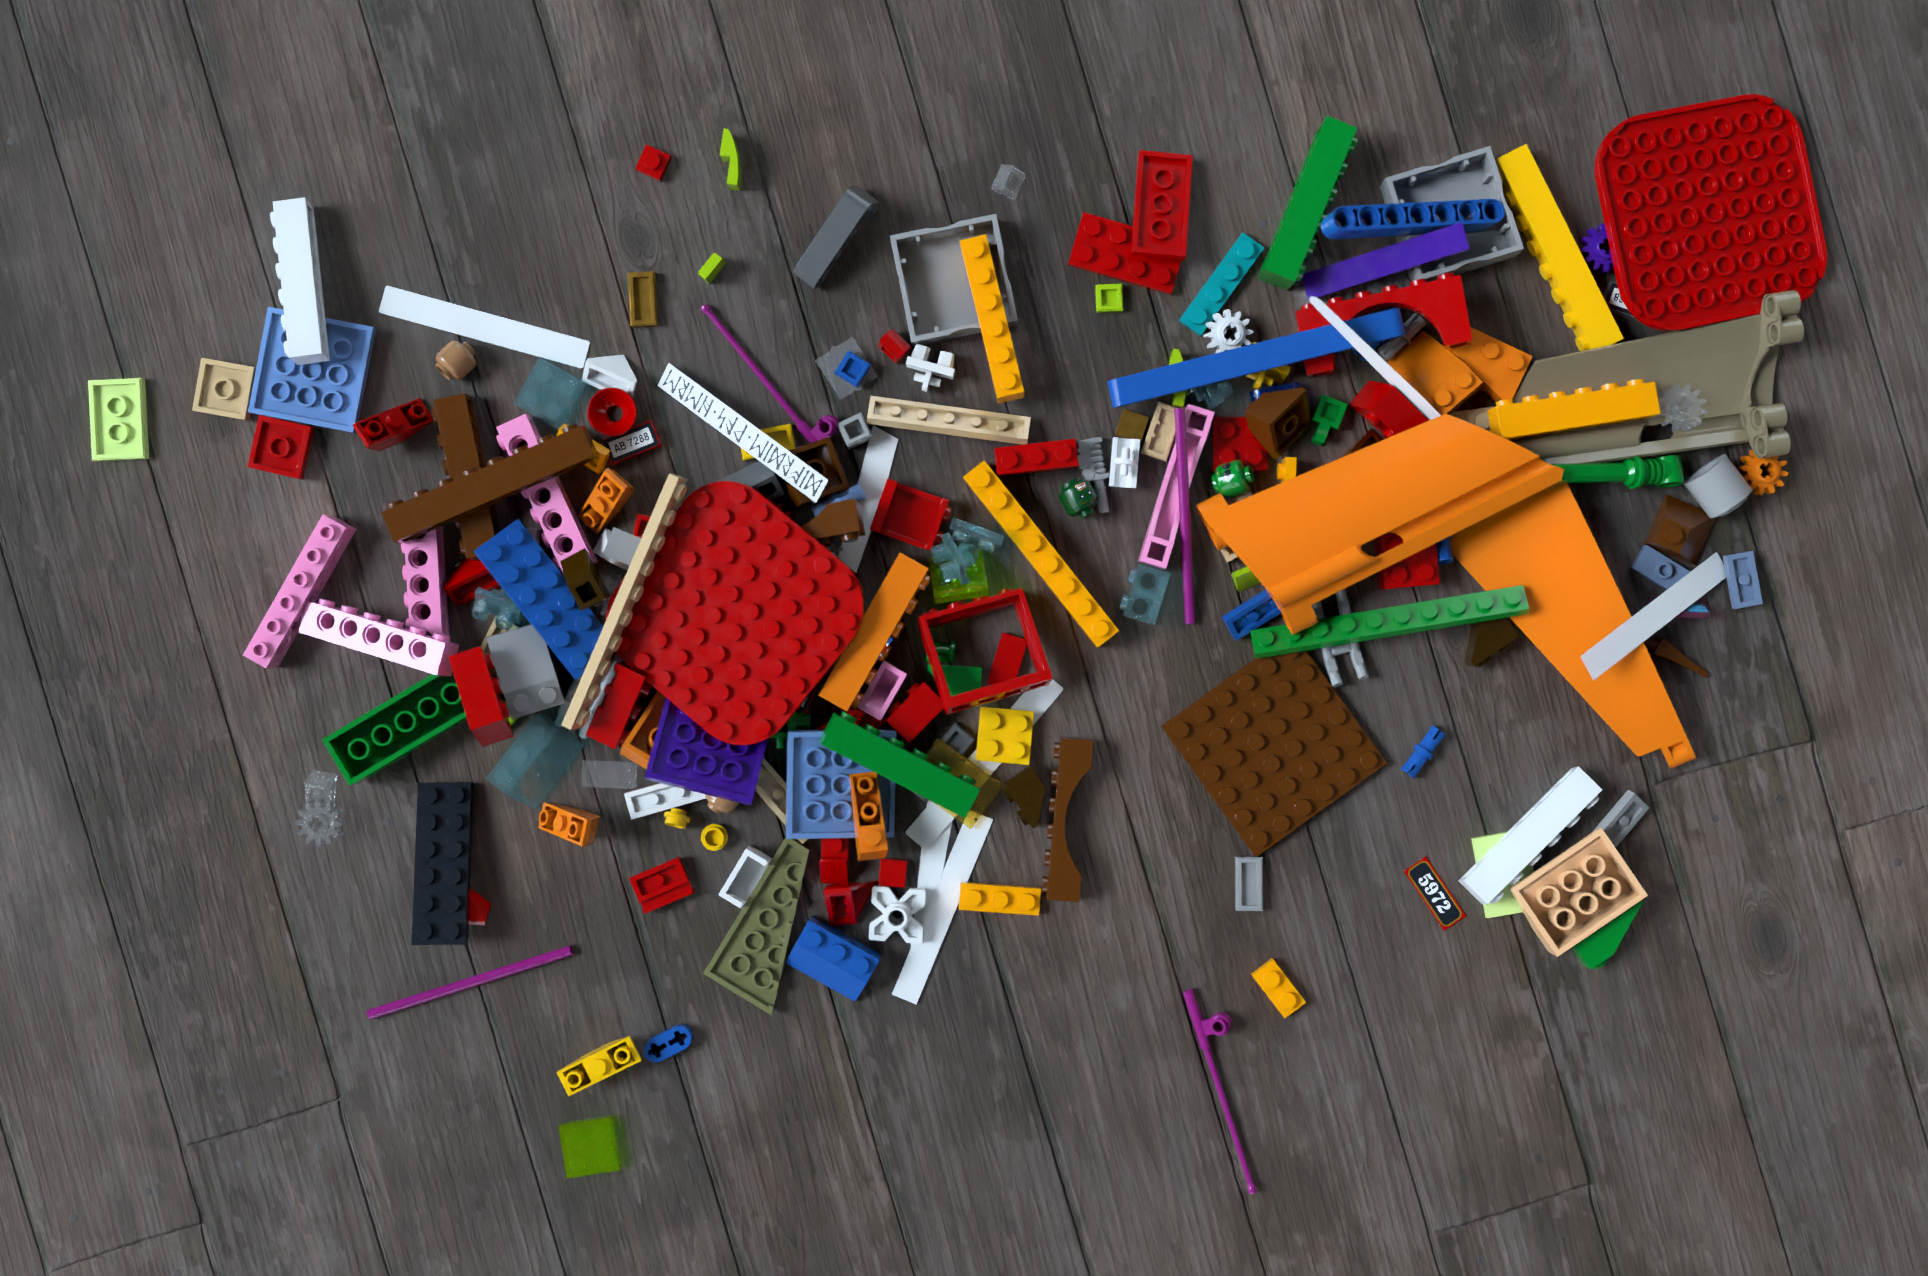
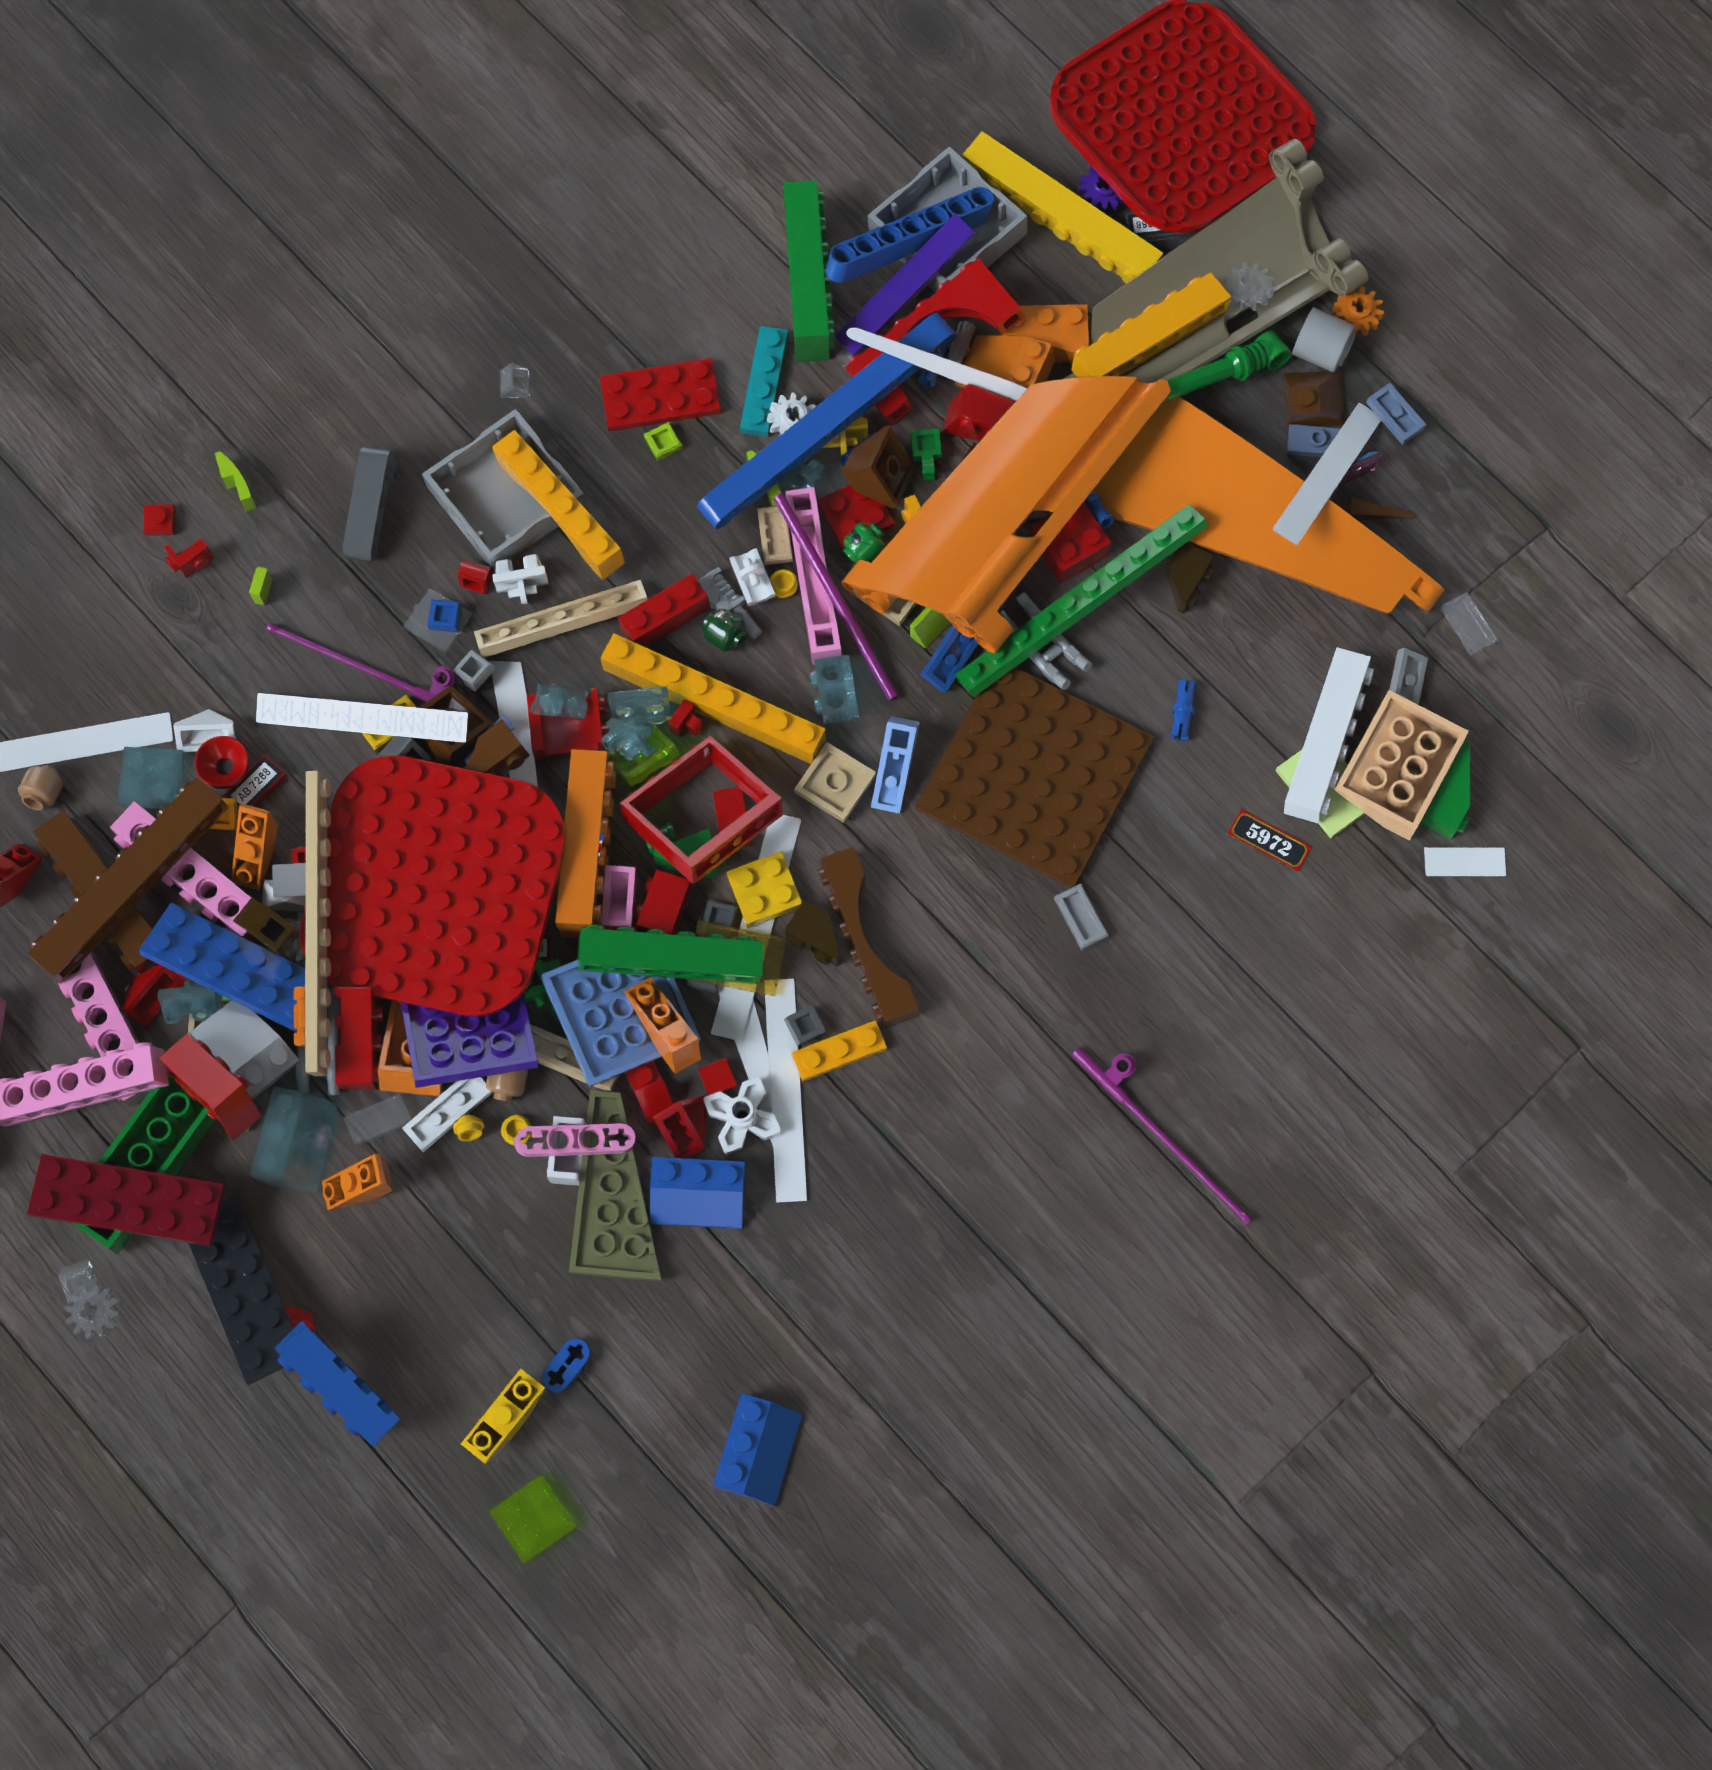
camera: 25 degrees left, 15 degrees down
(378, 755) = (126, 1200): none -> dark red plate
(469, 982) = (320, 1411): magenta piece -> none
(481, 984) = (337, 1383): none -> blue wedge
(578, 671) = (299, 1016): none -> orange axle
(643, 299) = (205, 648): pearl gold tile -> none
(661, 884) = (484, 1203): red plate -> none
(666, 215) = (190, 560): none -> red bracket
(751, 882) = (574, 1136): none -> bright pink beam
(783, 1181) = (757, 1449): none -> blue slope
(908, 497) = (560, 701): none -> clear light blue hips
(982, 866) = (805, 1025): none -> dark grey plate
(1008, 559) = (685, 719): none -> red tile
(1106, 674) = (835, 782): none -> tan plate
(1131, 425) = (742, 541): pearl gold tile -> none
(1148, 478) = (784, 583): none -> yellow plate
(1161, 205) = (670, 334): red plate -> none
(1163, 682) = (895, 764): none -> light blue slope
(1278, 988) = (1164, 1004): light orange plate -> none
(1583, 989) = (1465, 861): none -> white sticker
(1699, 793) = (1469, 624): none -> clear tile

